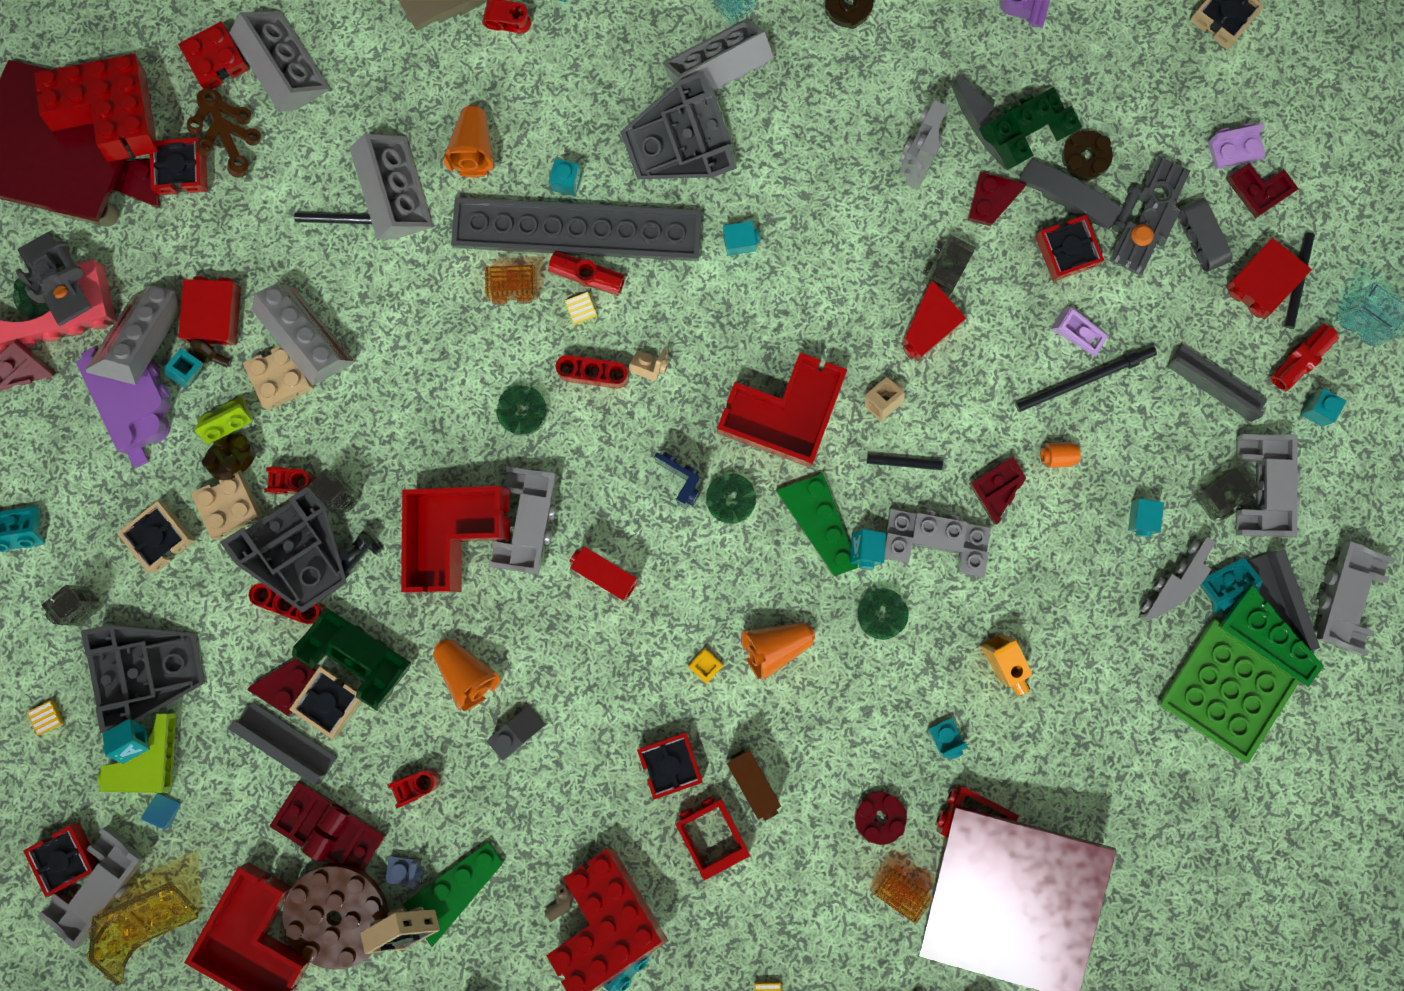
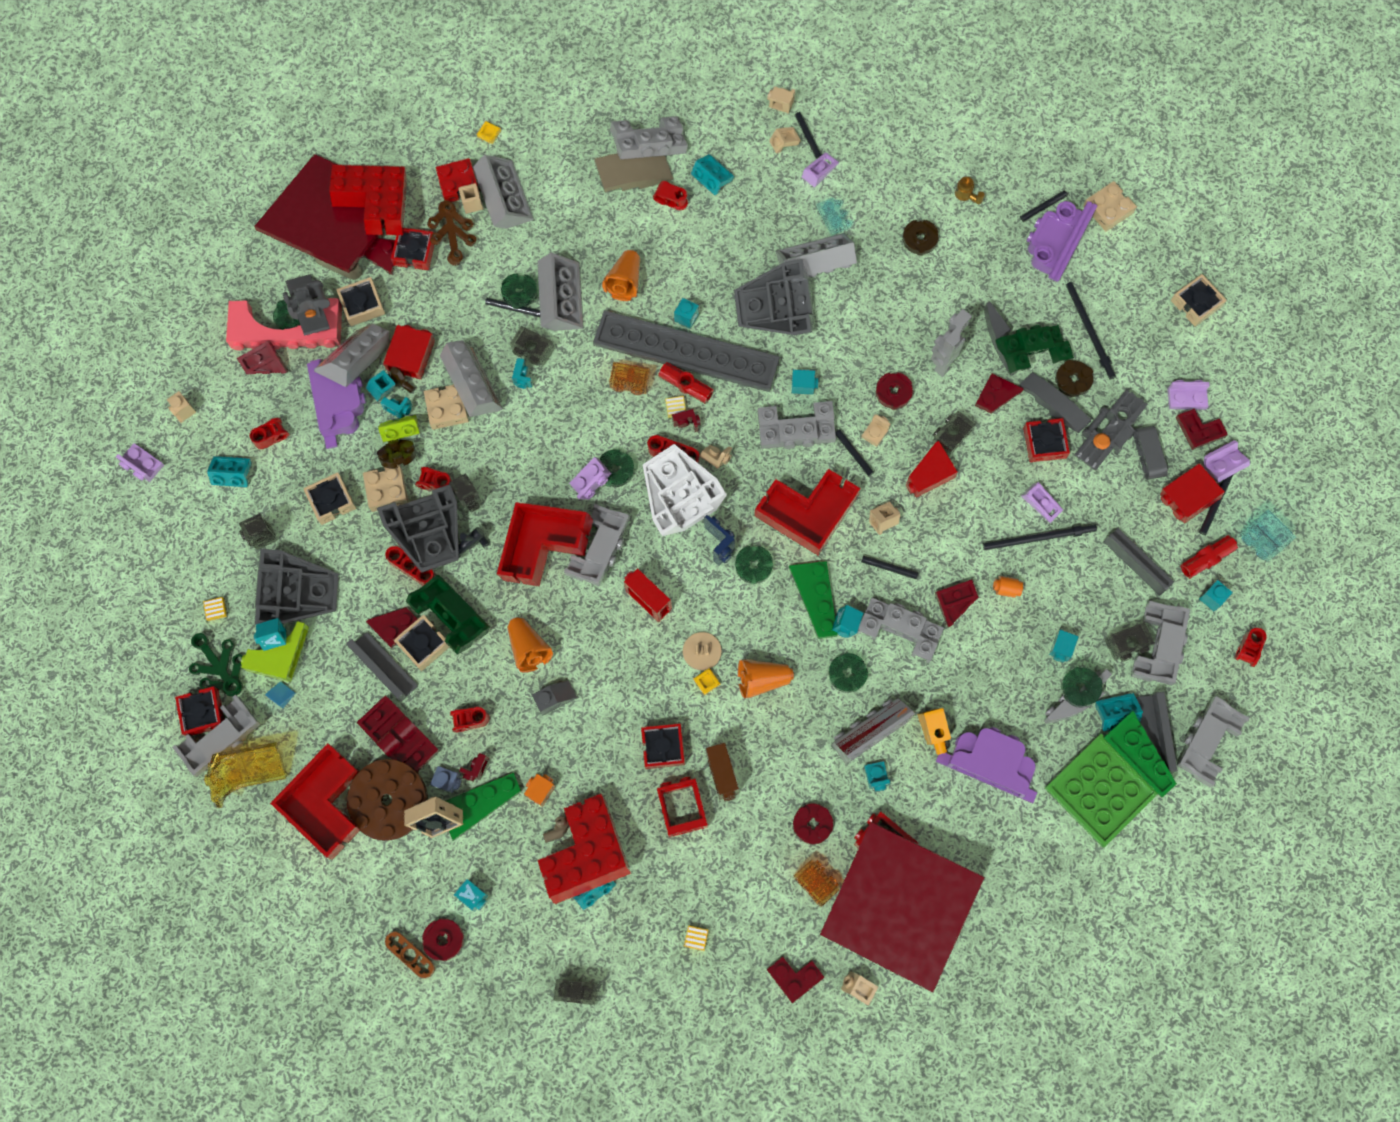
camera: 15 degrees right, 10 degrees down
(55, 463) = (269, 432): none -> red piece
(71, 793) = (219, 667): none -> dark green plant
(126, 256) = (360, 301): none -> piece
(219, 394) = (395, 408): none -> teal bracket
(237, 78) = (470, 198): none -> tan brick
(336, 207) = (518, 299): none -> clear green plate
(360, 259) = (525, 338): none -> clear smoke brick
(363, 307) = (519, 375): none -> teal bracket
(441, 846) = (478, 767): none -> dark red bracket
(492, 432) = (590, 478): none -> lavender bracket
(526, 856) = (539, 788): none -> orange brick
(594, 324) = (683, 419): none -> dark red bracket
(613, 424) = (680, 491): none -> white wedge
(690, 627) = (702, 651): none -> tan piece
(747, 307) = (796, 431): none -> light grey bracket
(826, 319) = (855, 454): none -> black bar
(848, 282) = (876, 430): none -> tan bracket
(857, 209) = (893, 380): none -> dark red plate
(931, 683) = (872, 730): none -> light grey slope
(1088, 686) = (993, 760): none -> medium lavender brick
(1122, 122) = (1105, 360): none -> black bar
(1194, 561) = (1070, 689): none -> clear green plate
(1302, 226) = (1225, 461): none -> lavender bracket
(1378, 468) = (1250, 650): none -> red piece

